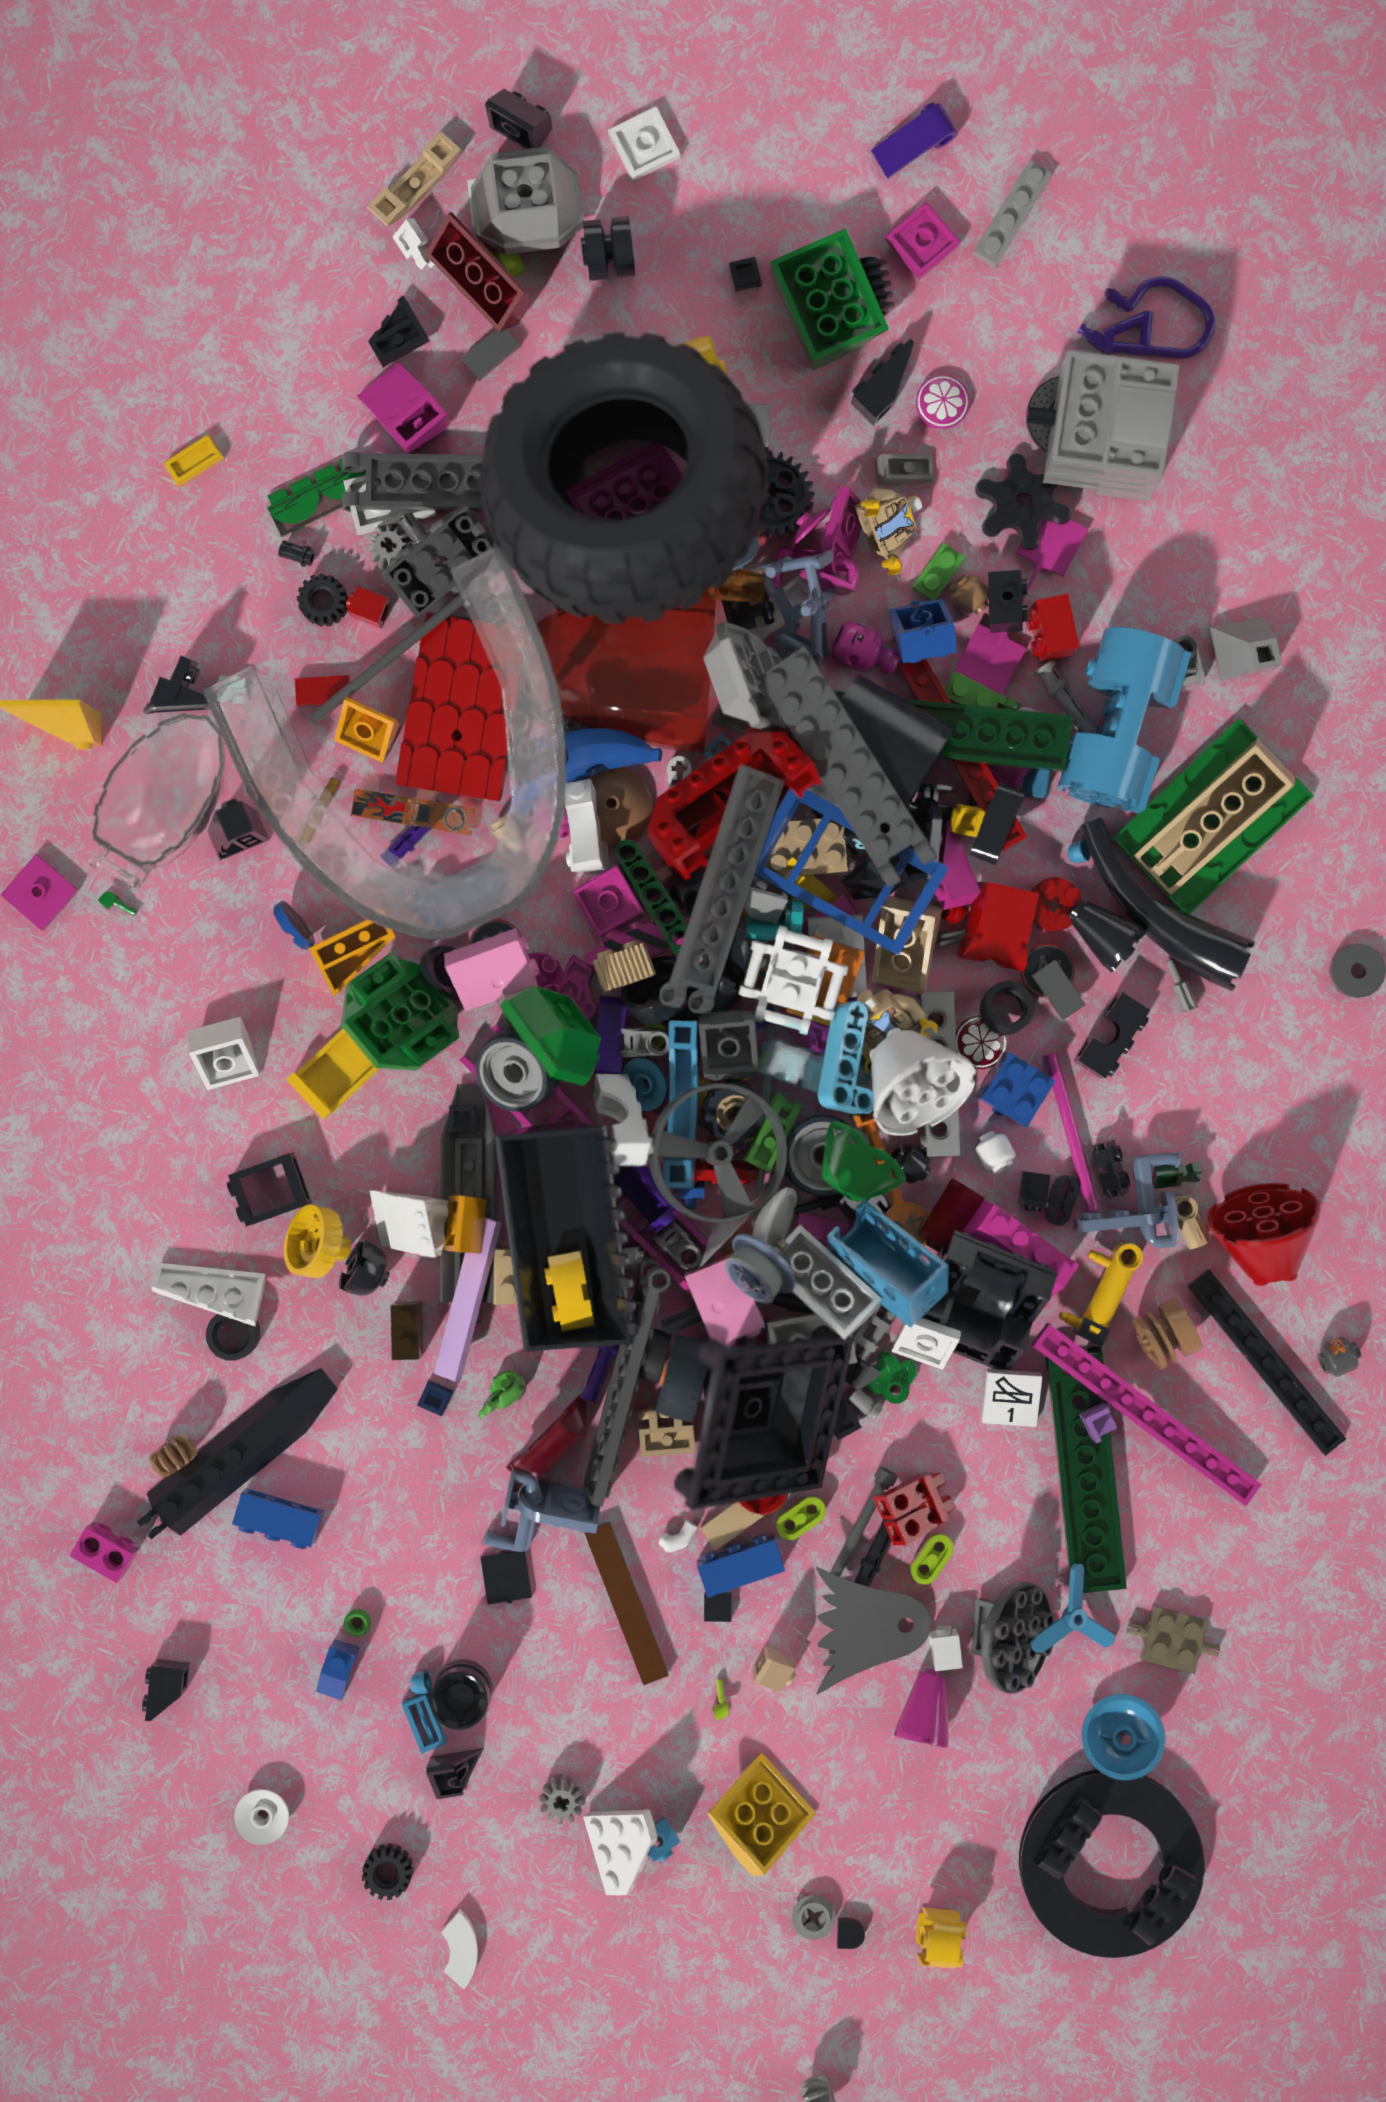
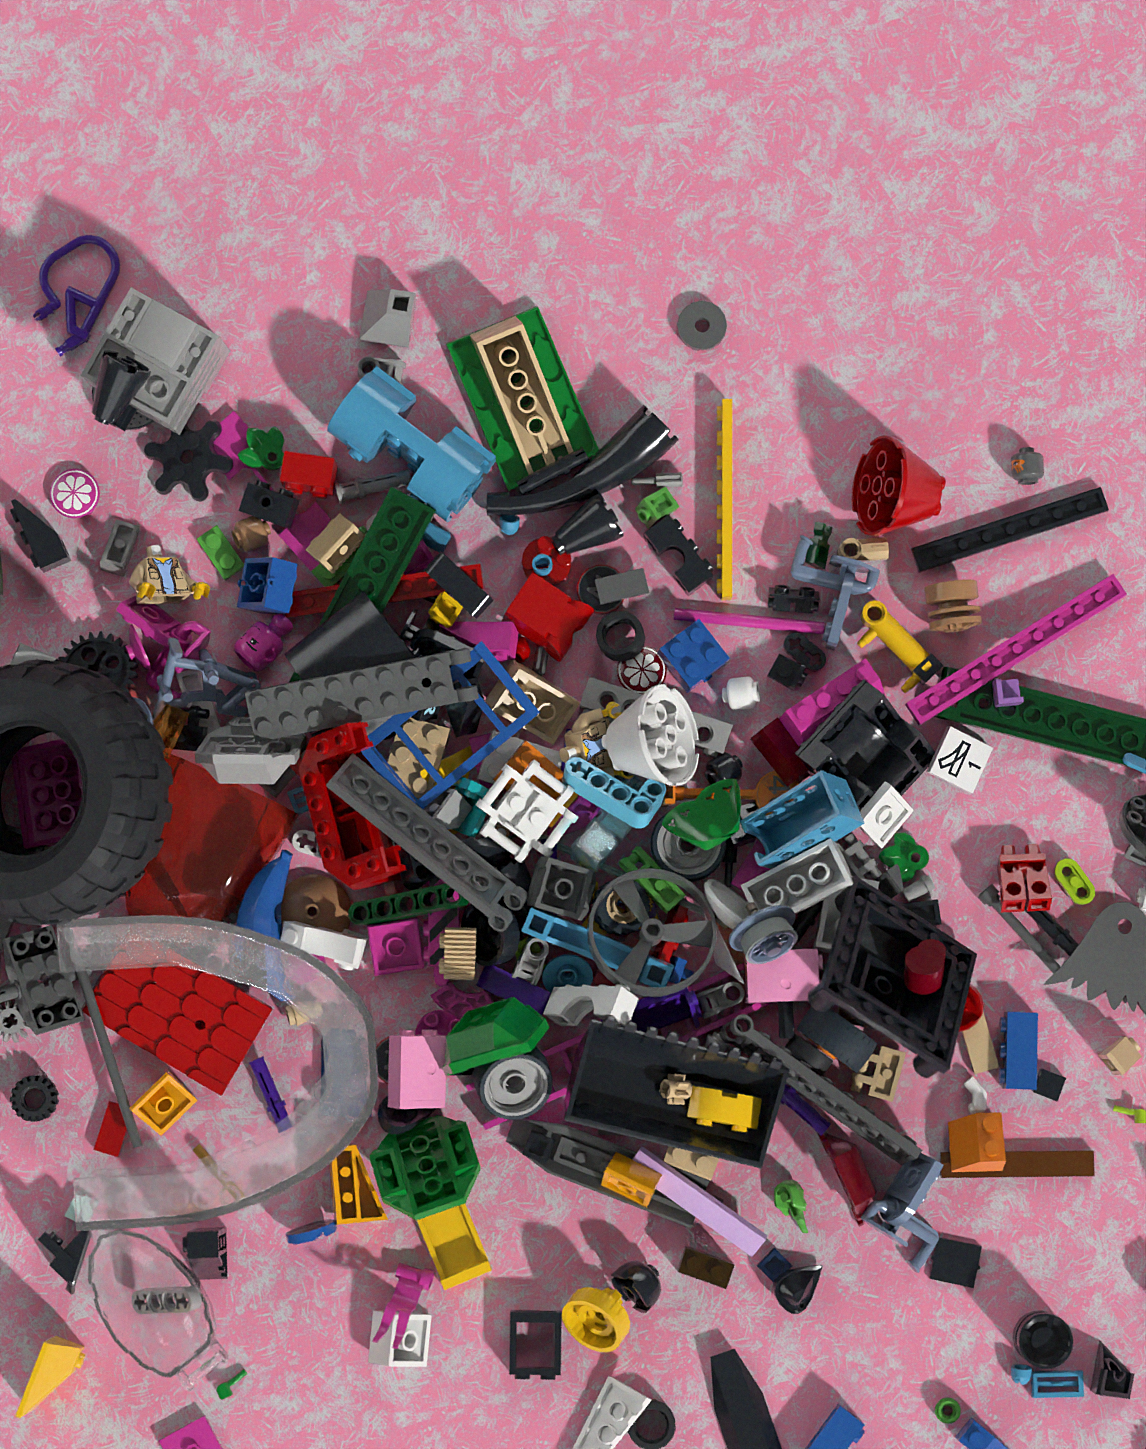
camera: 65 degrees left, 5 degrees down
(169, 807) = (165, 1297): none -> light grey beam
(260, 1043) = (404, 1300): none -> dark pink flag
(368, 606) = (56, 1060): red brick -> none
(410, 1222) = (611, 1227): white slope -> none
(411, 811) = (250, 1090): piece -> none
(421, 1428) = (796, 1287): none -> black piece
(570, 1235) = (676, 1089): none -> tan gear
(631, 1557) = (977, 1143): none -> orange slope
(787, 1443) = (925, 967): none -> dark red piece
(801, 1517) = (997, 982): lime plate -> none
(992, 683) = (335, 543): none -> tan brick
(1053, 899) = (542, 561): none -> dark azure hinge
(1063, 570) = (260, 446): none -> green plate
(1071, 389) = (117, 385): none -> black cone
(1150, 875) = (553, 470): none -> black pin
(1152, 994) = (656, 507): none -> bright green bracket
(1197, 1057) = (724, 510): none -> yellow plate

